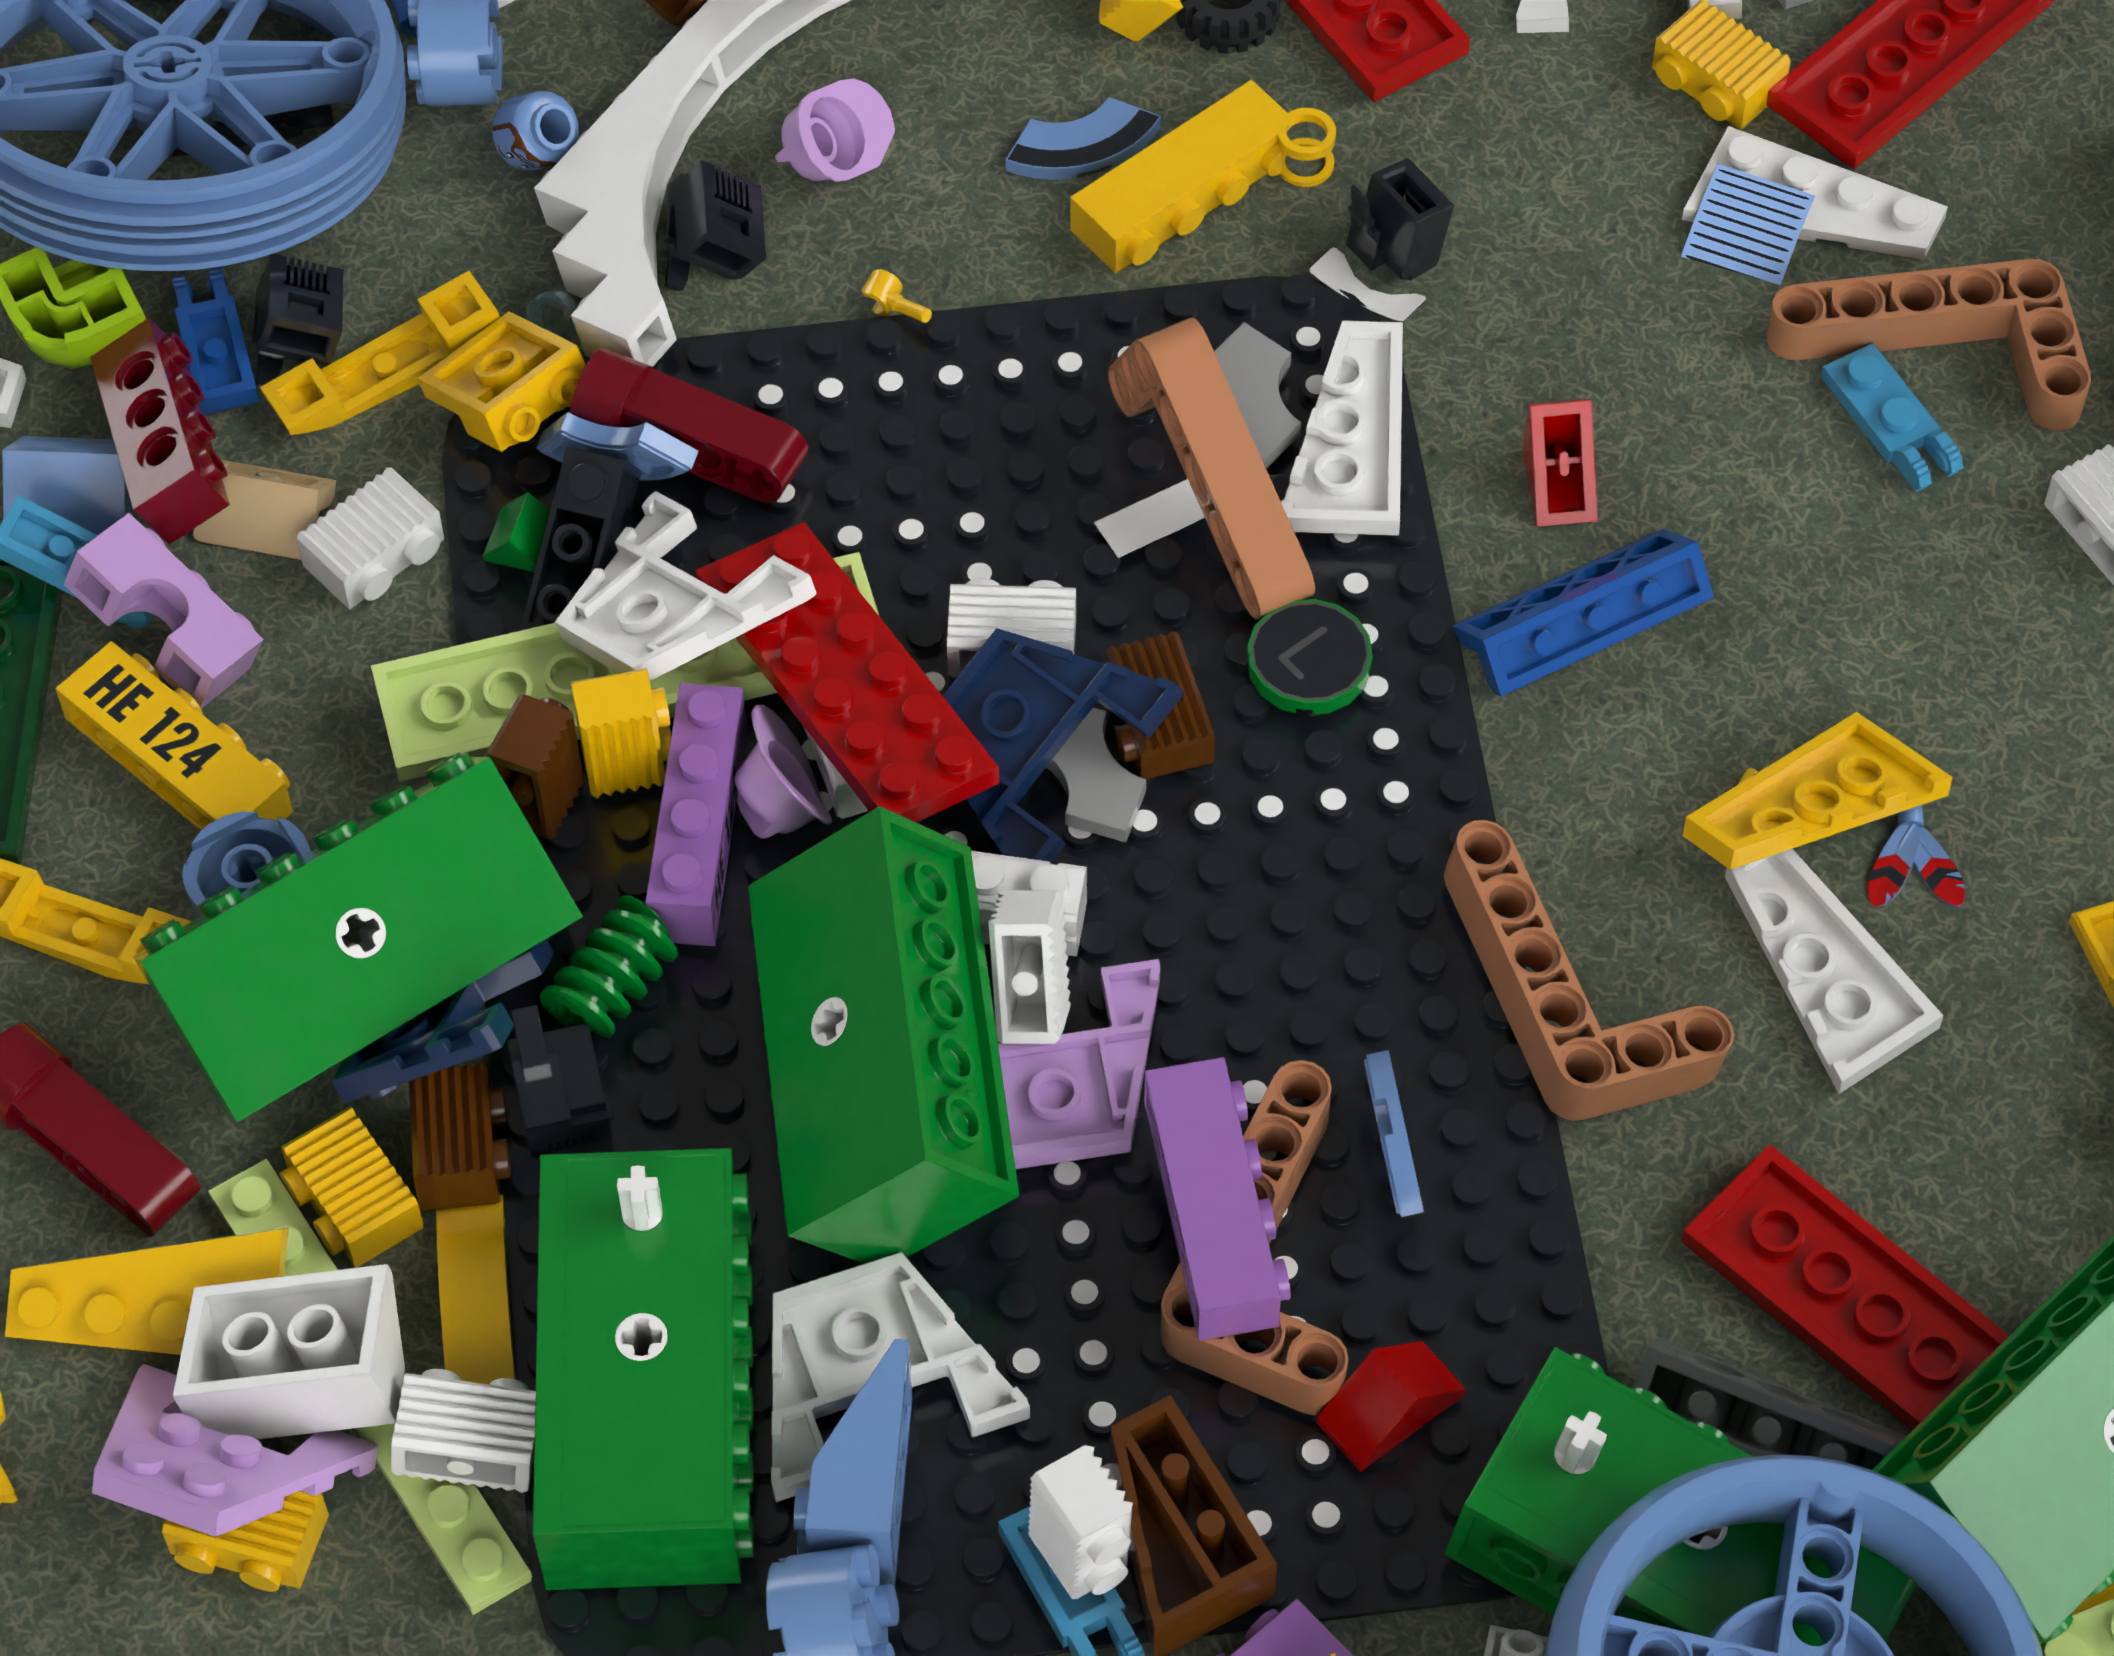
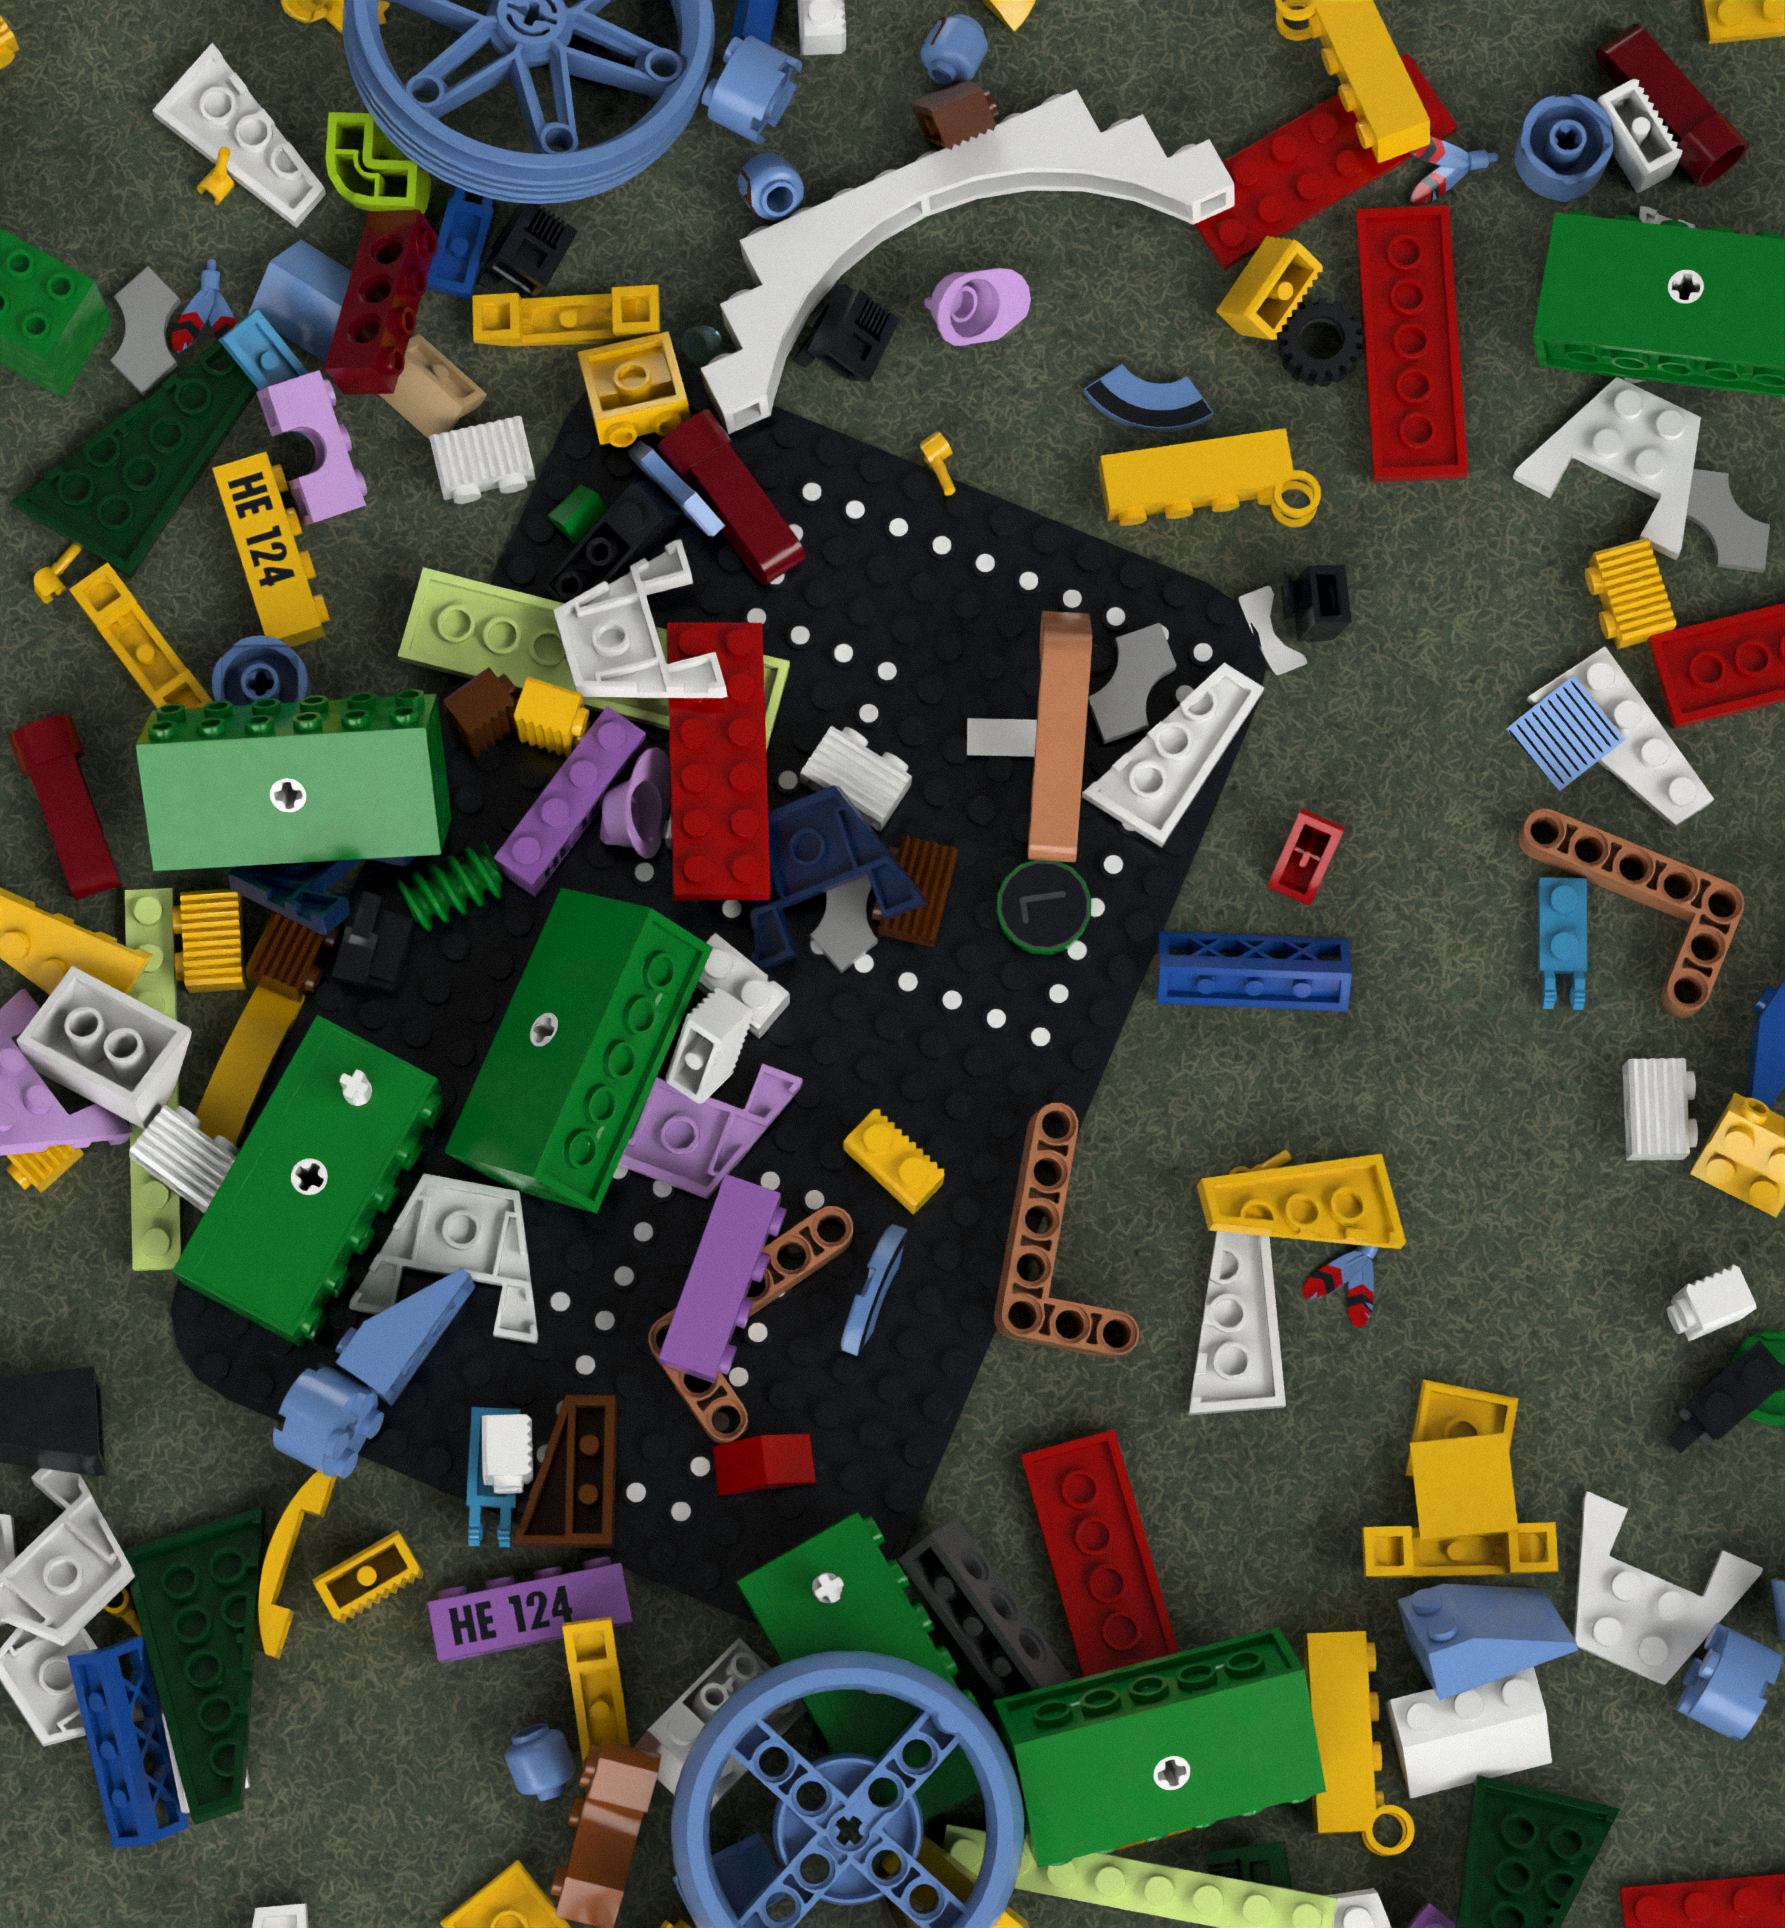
camera: 25 degrees right, 20 degrees up
(1323, 988) = (894, 1161): none -> yellow brick

